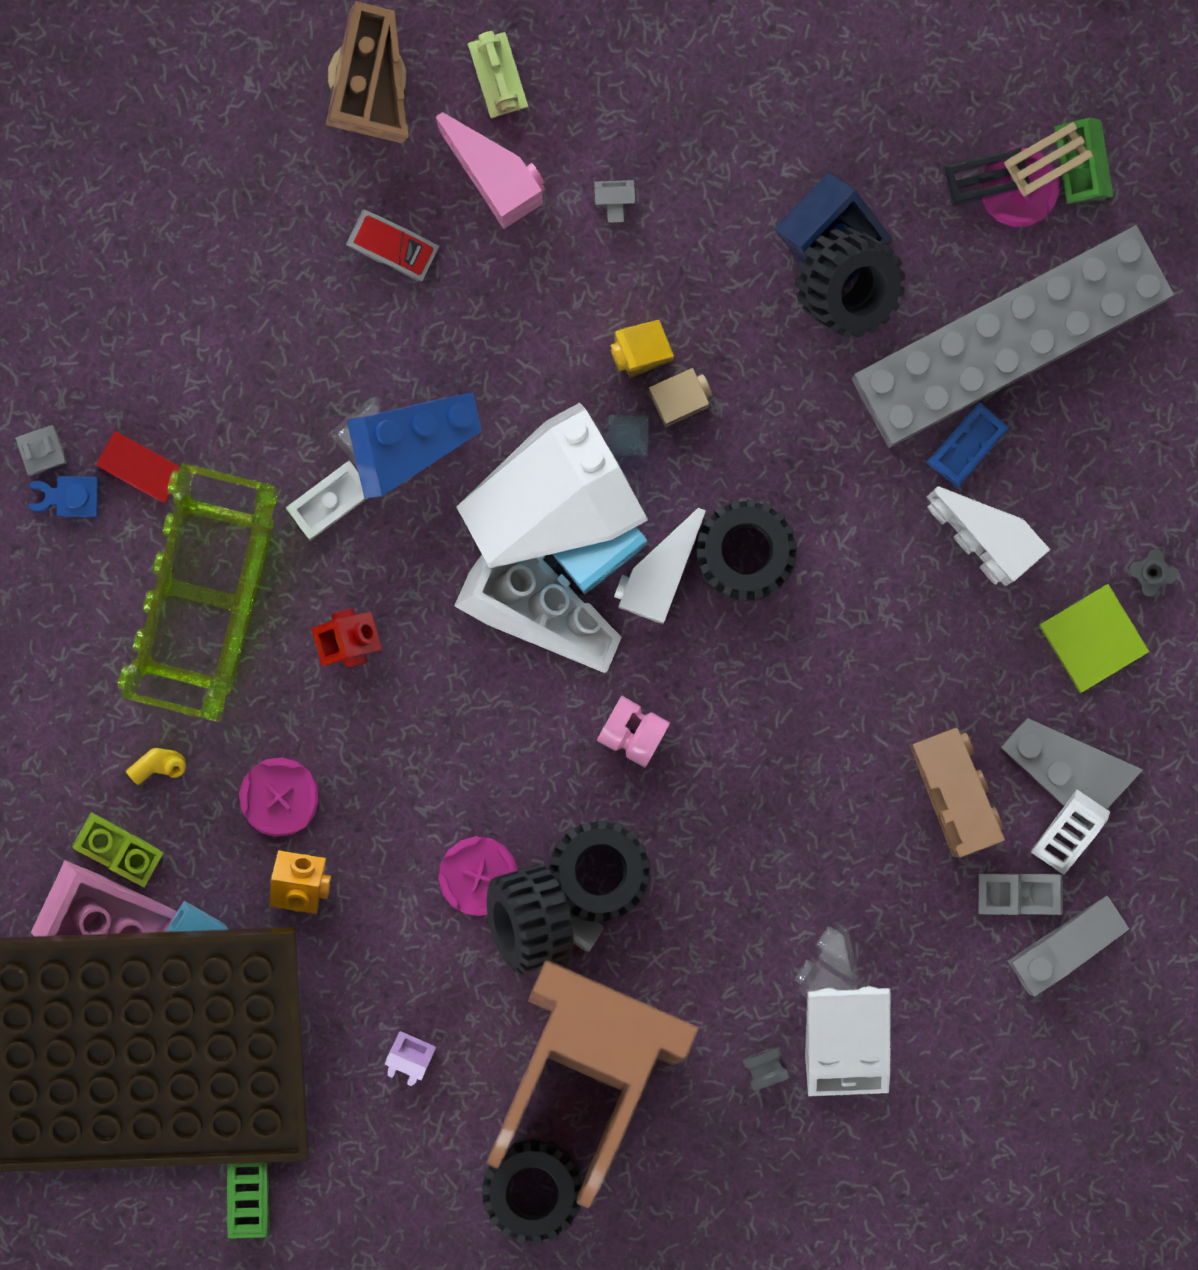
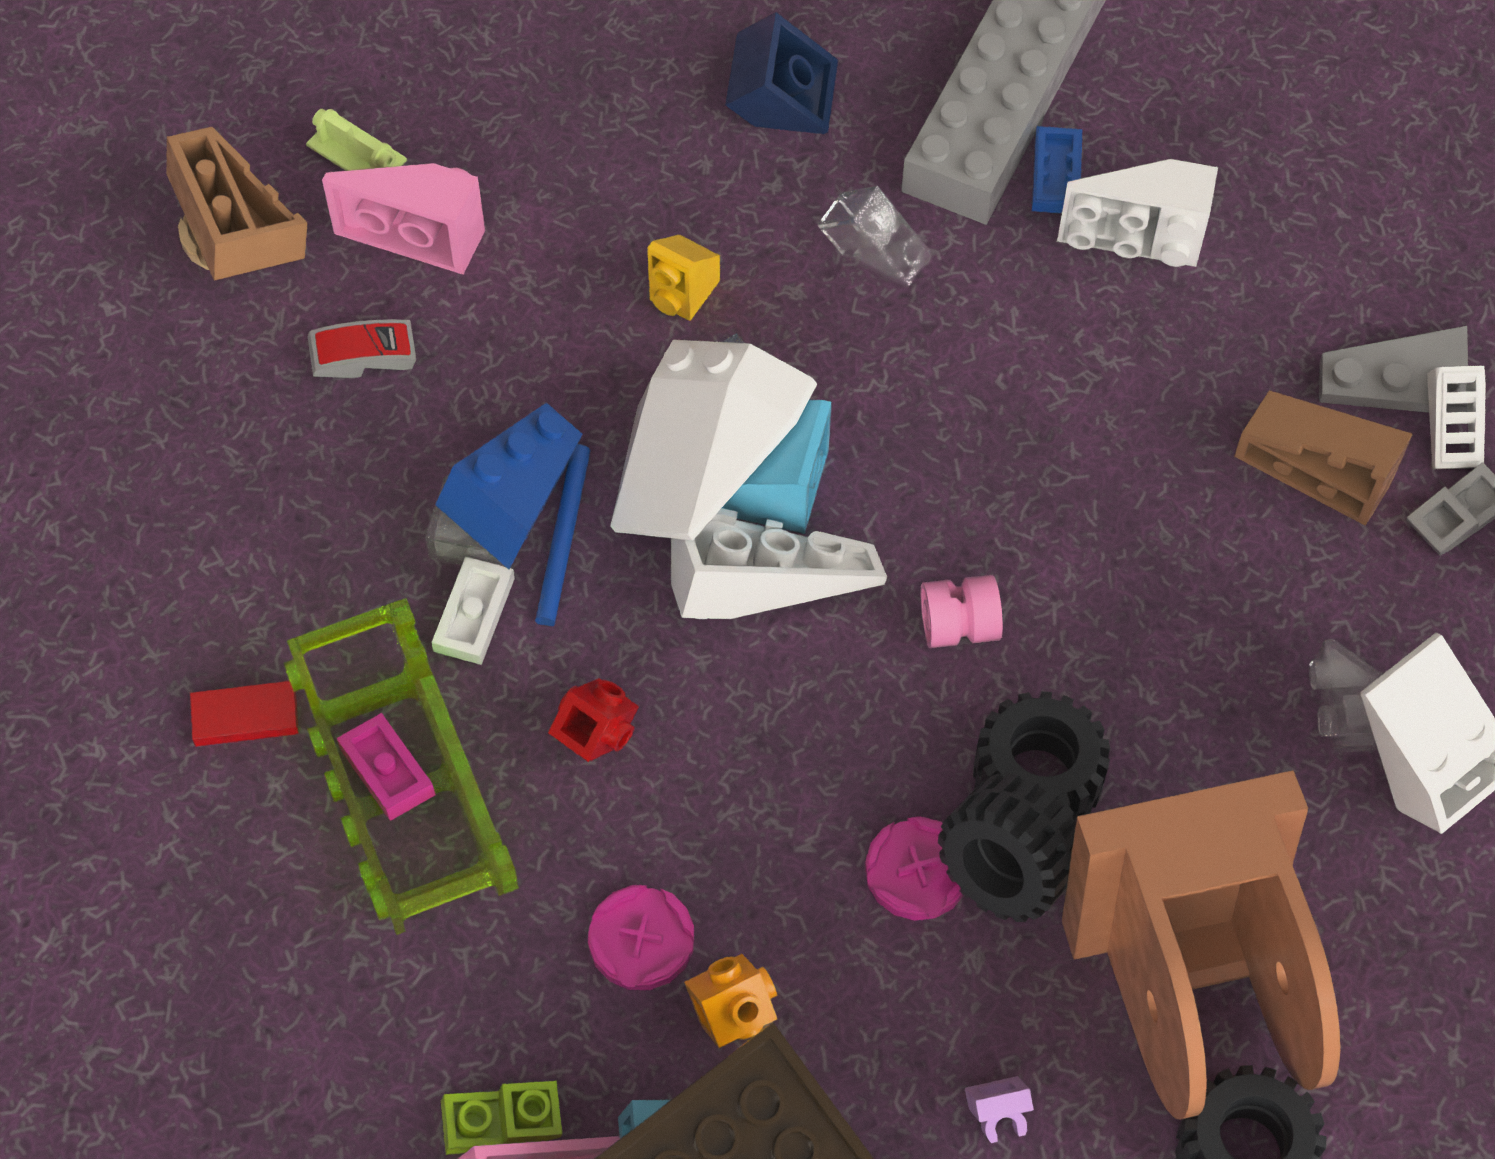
camera: 40 degrees left, 25 degrees down
(41, 450) = (120, 767): light grey tile -> none
(72, 496) = (187, 789): blue plate -> none
(157, 761) = (478, 993): yellow arm -> none
(199, 573) = (386, 766): none -> dark pink plate
(424, 487) = (562, 536): none -> blue bar
(614, 195) = (552, 174): light grey tile -> none
(657, 576) = (866, 465): white slope -> none
(680, 396) = (753, 296): tan brick -> none
(751, 515) = (925, 410): black tyre -> none
(765, 1068) = (1374, 841): dark grey wheel -> none
(797, 409) = (875, 235): none -> clear slope
(829, 267) = (834, 91): black tyre -> none
(1094, 638) = (1316, 252): lime tile -> none
(1141, 571) = (1313, 174): dark grey plate -> none

